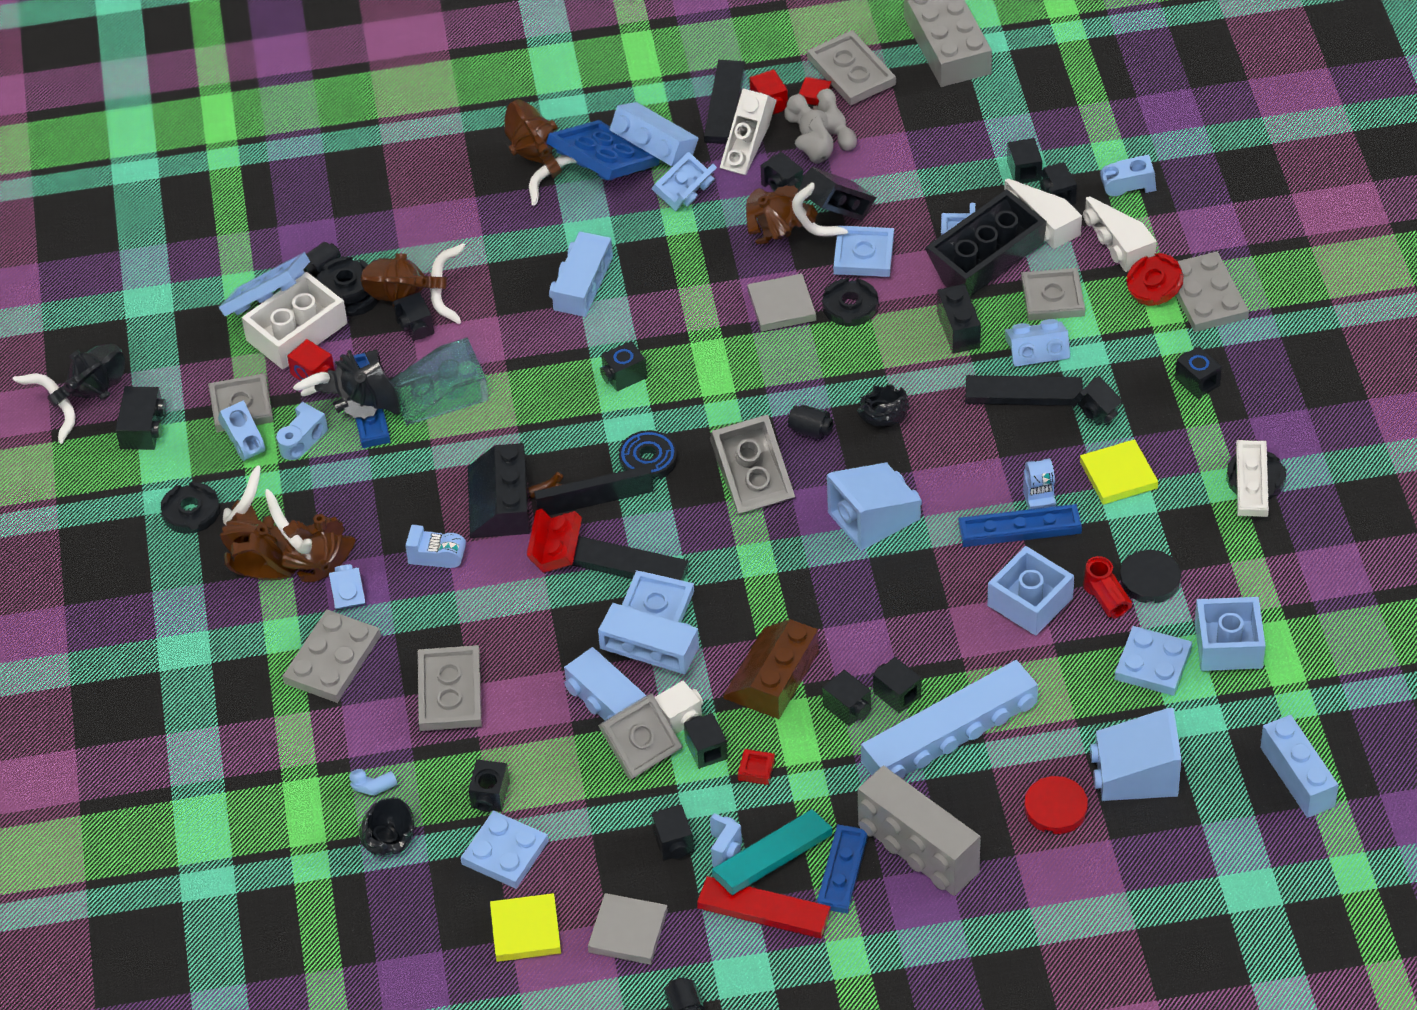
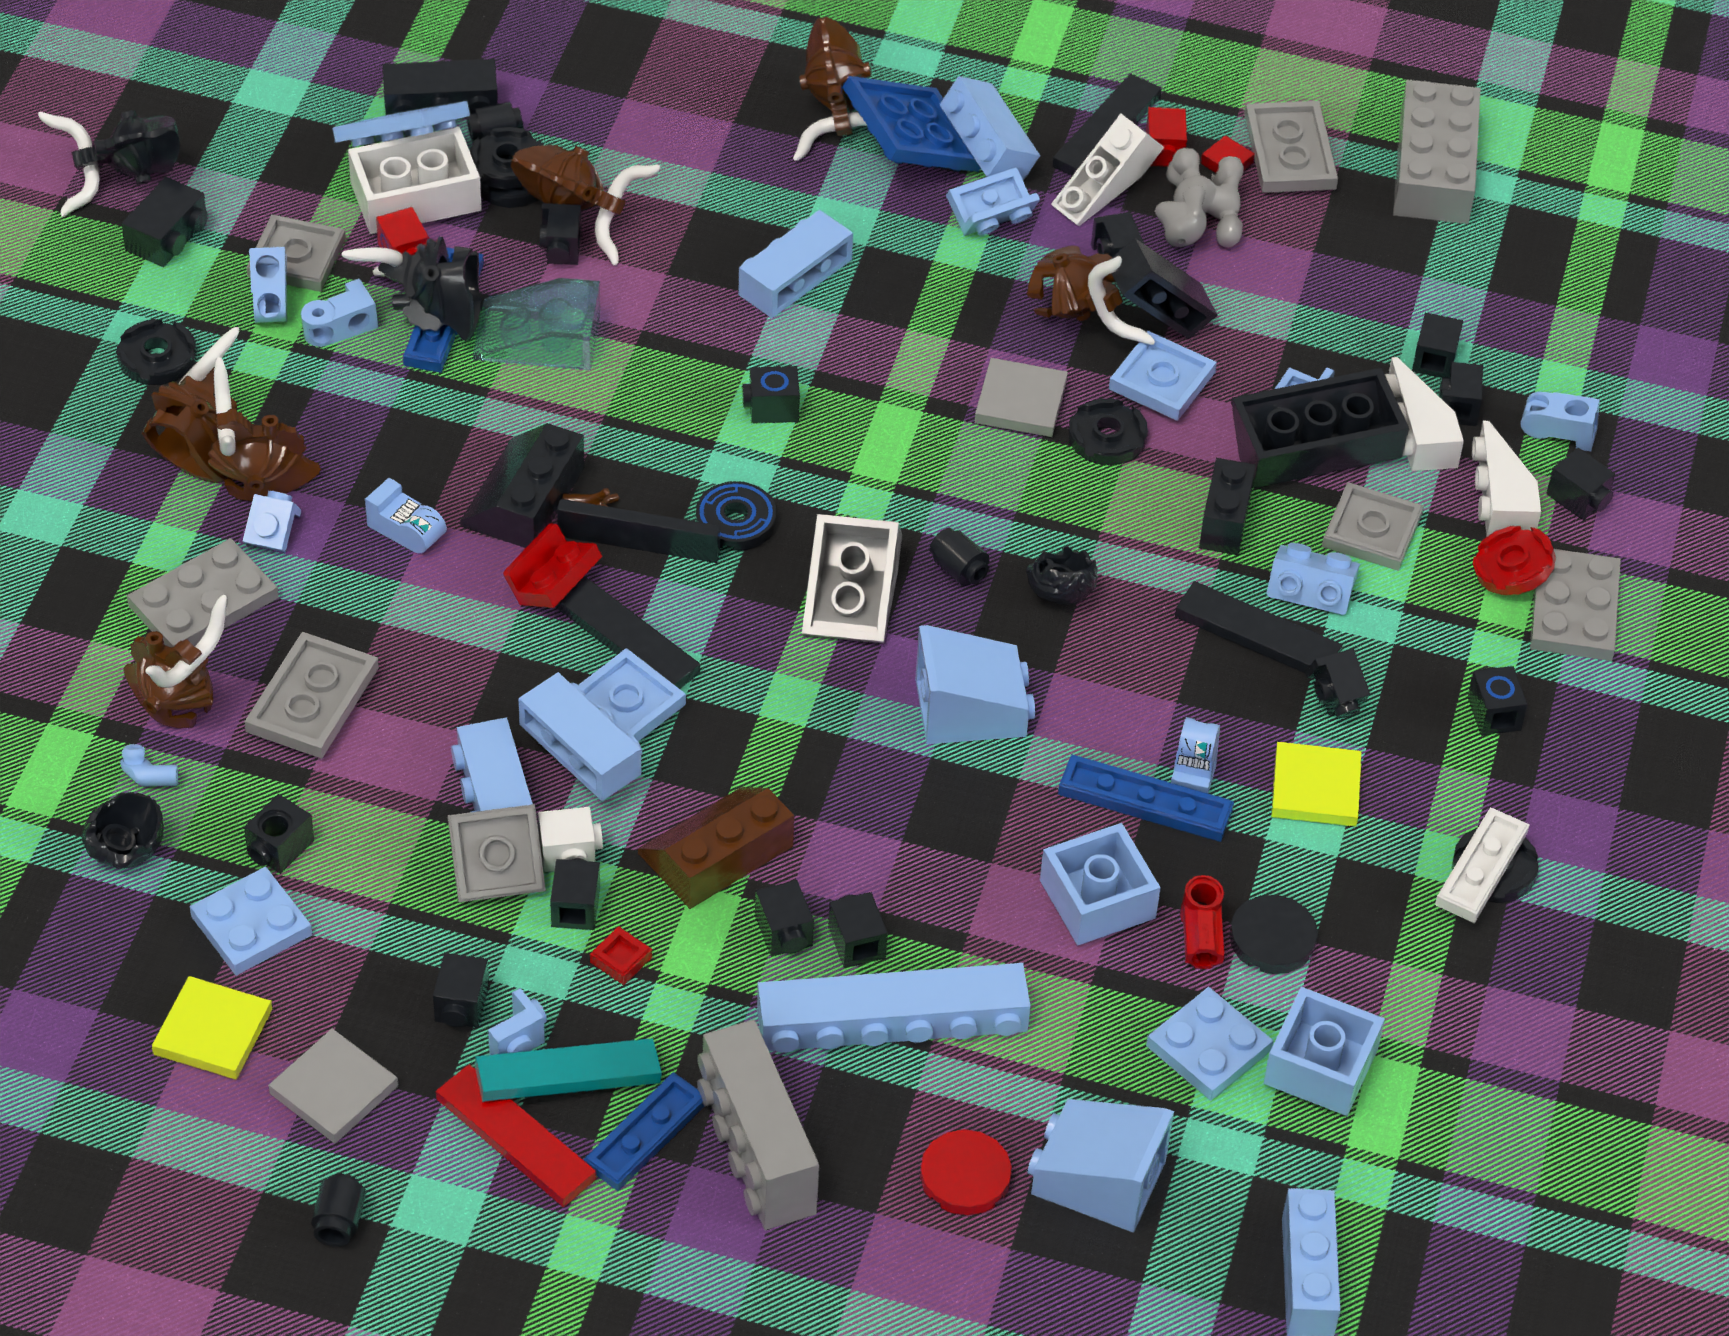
camera: 20 degrees right, 0 degrees up
(266, 250) = (439, 83): none -> black brick
(355, 715) = (176, 675): none -> reddish brown helmet
(1166, 214) = (1581, 484): none -> black brick

